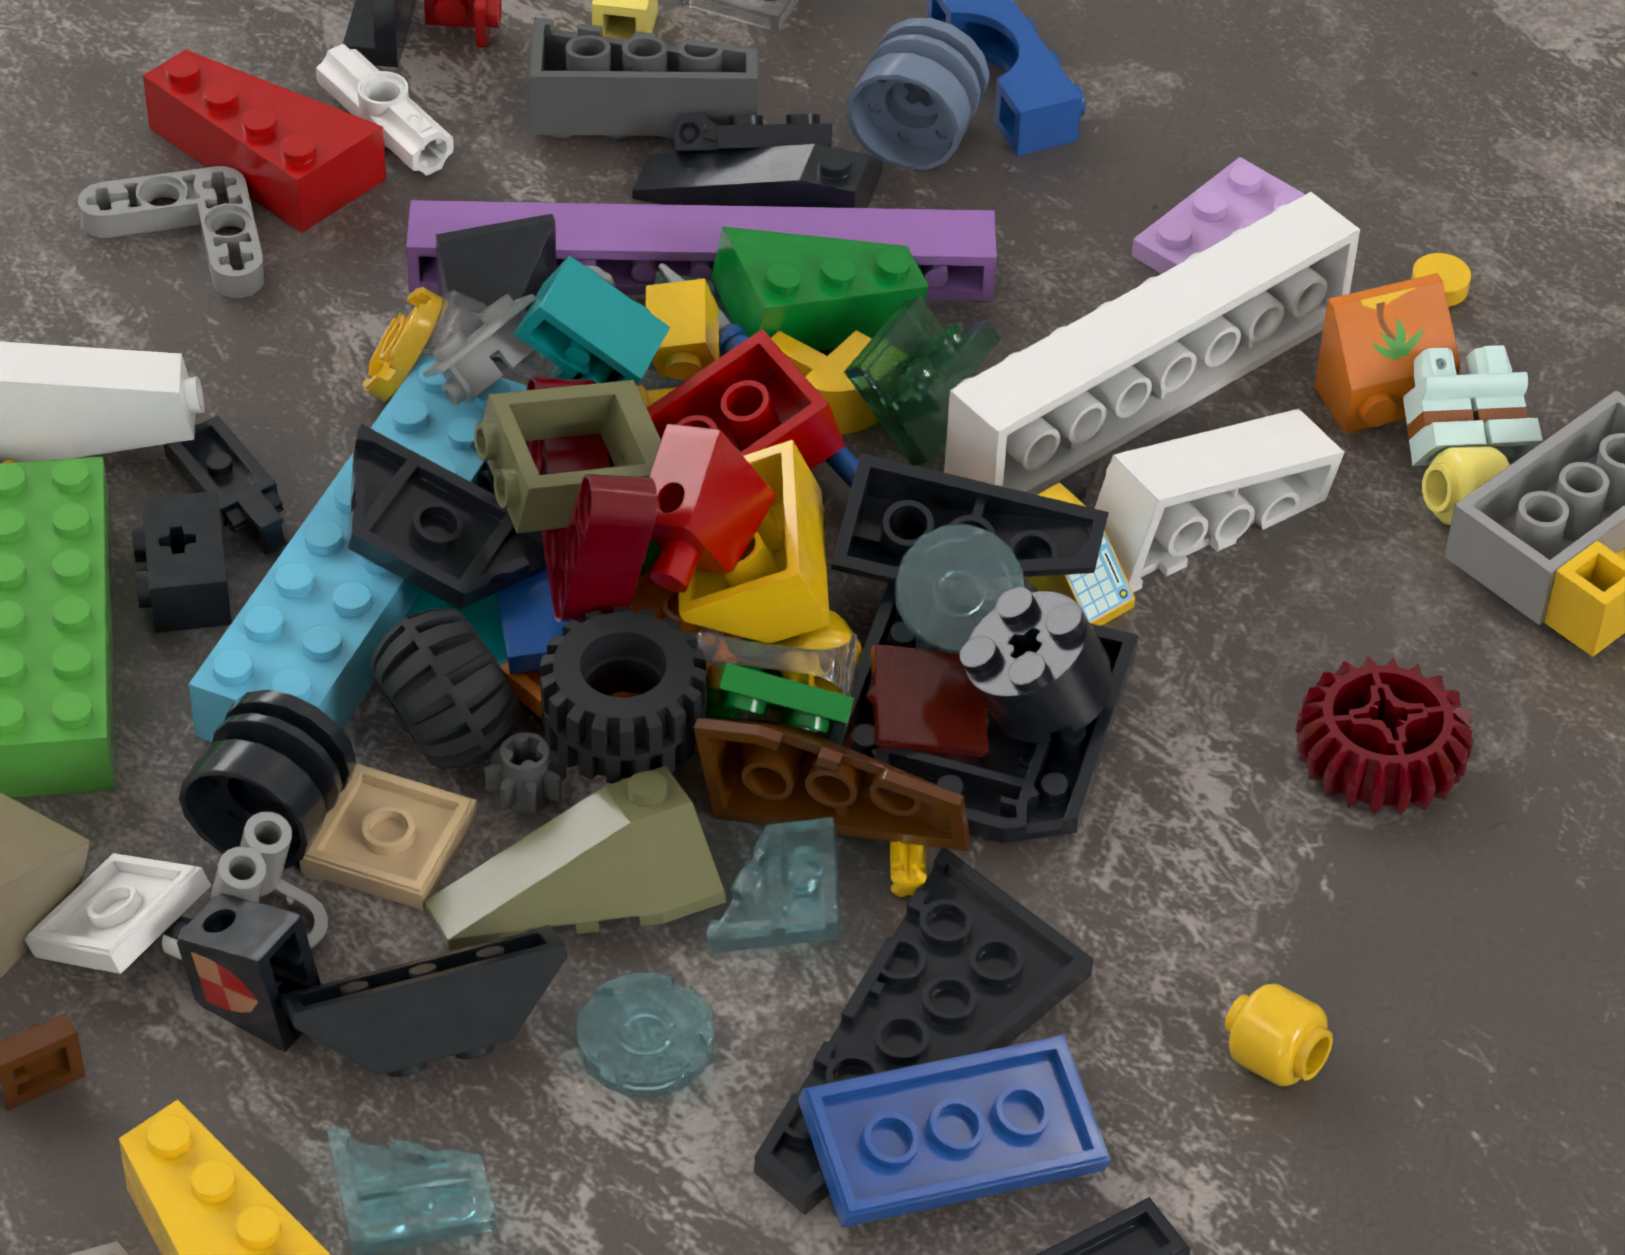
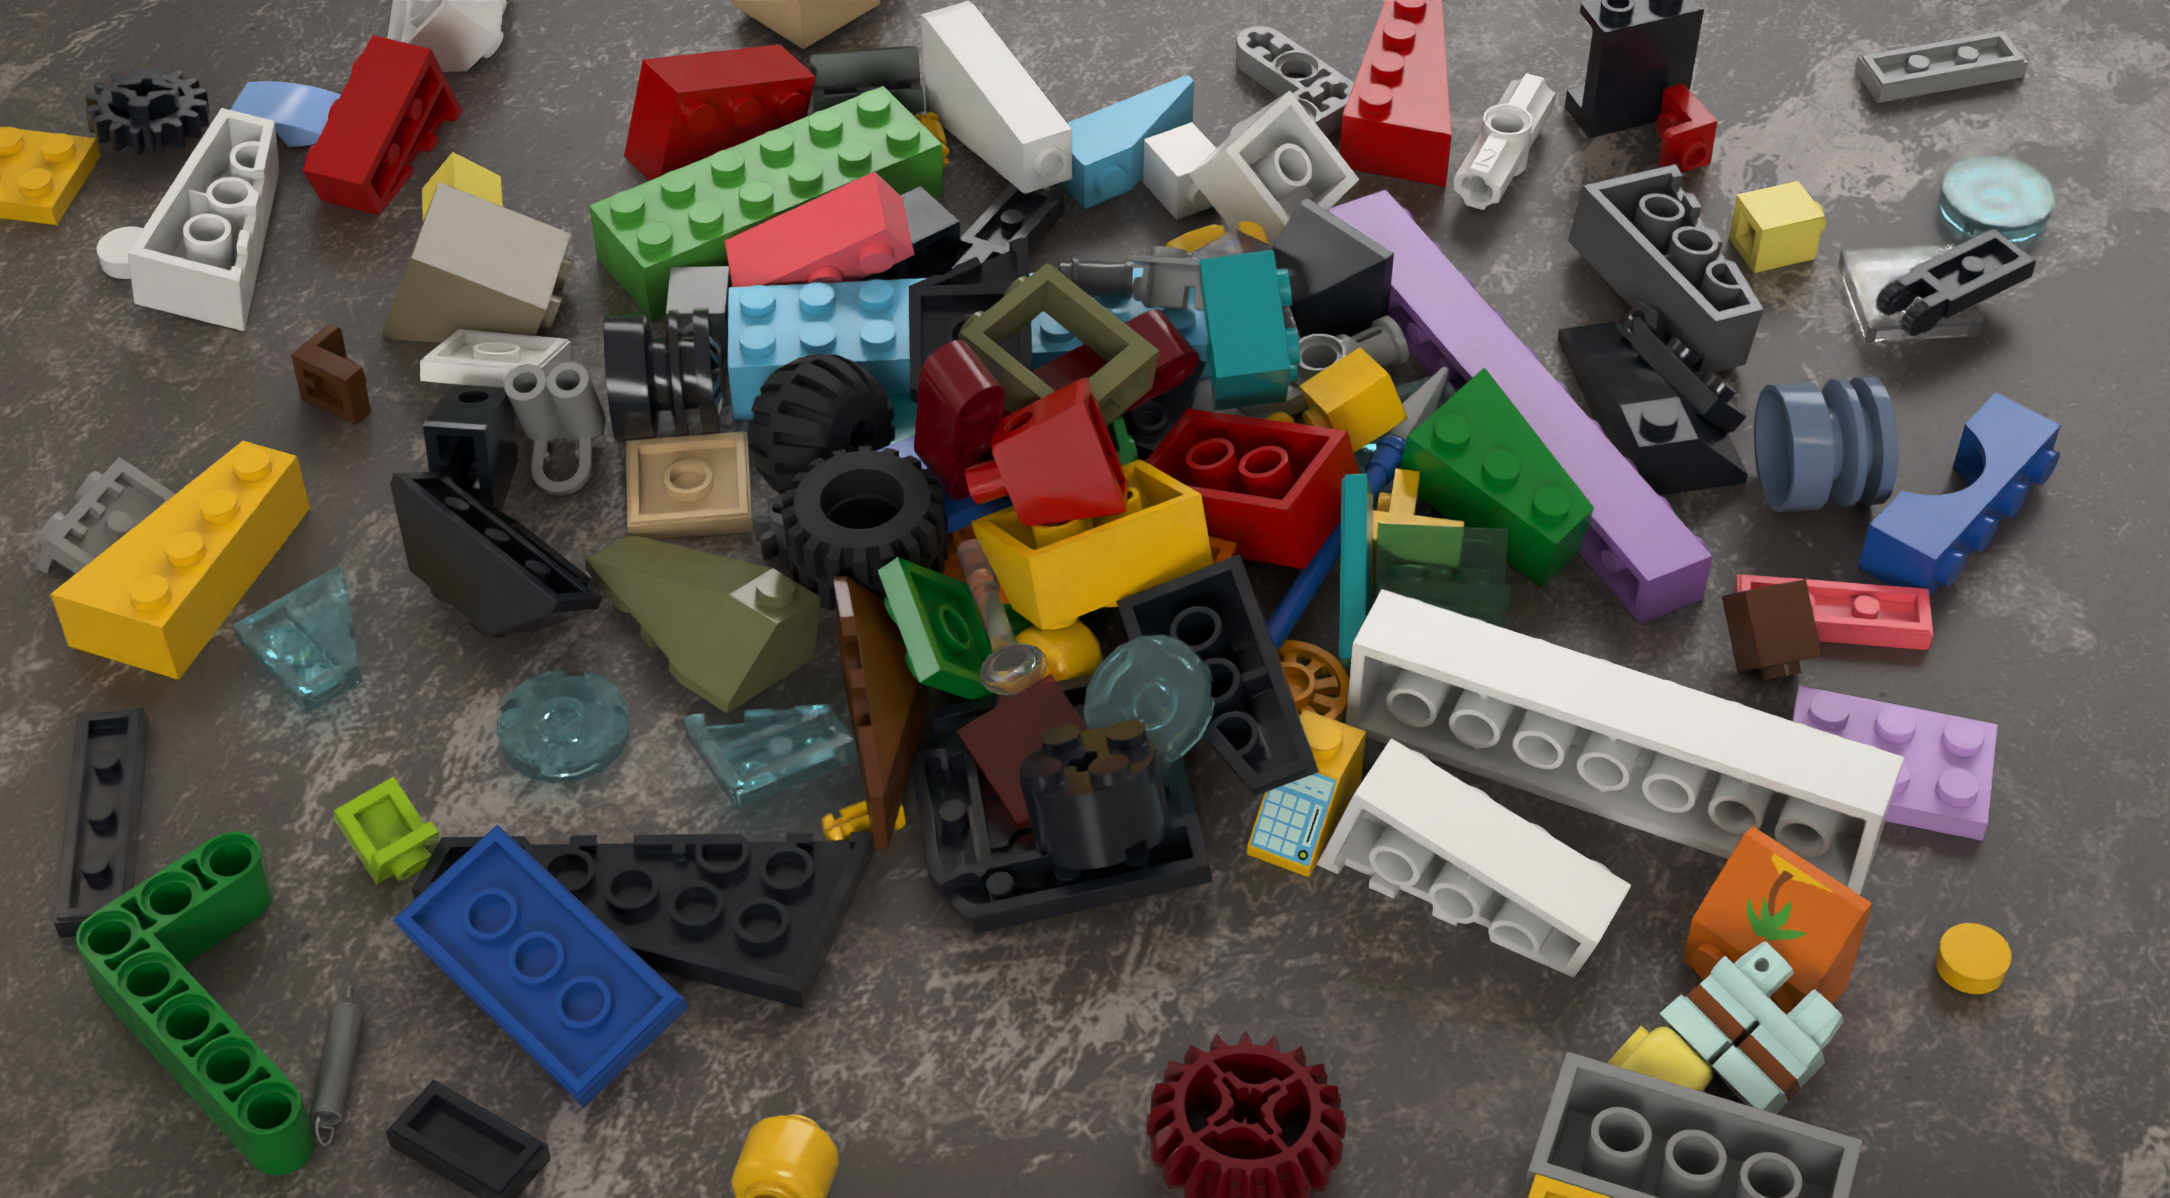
camera: 65 degrees right, 0 degrees up
(160, 733) = (701, 289): none -> light grey brick
(172, 327) = (1111, 140): none -> medium azure slope
(191, 594) = (826, 240): none -> coral brick
(249, 323) = (1166, 169): none -> white brick
(338, 259) = (1272, 167): none -> white brick
(414, 422) = (1100, 277): none -> dark grey pin
(719, 1200) = (387, 832): none -> lime bracket
(877, 413) = (1355, 561): none -> teal tile
(1060, 189) = (1862, 611): none -> coral tile
(1079, 218) = (1772, 628): none -> reddish brown brick

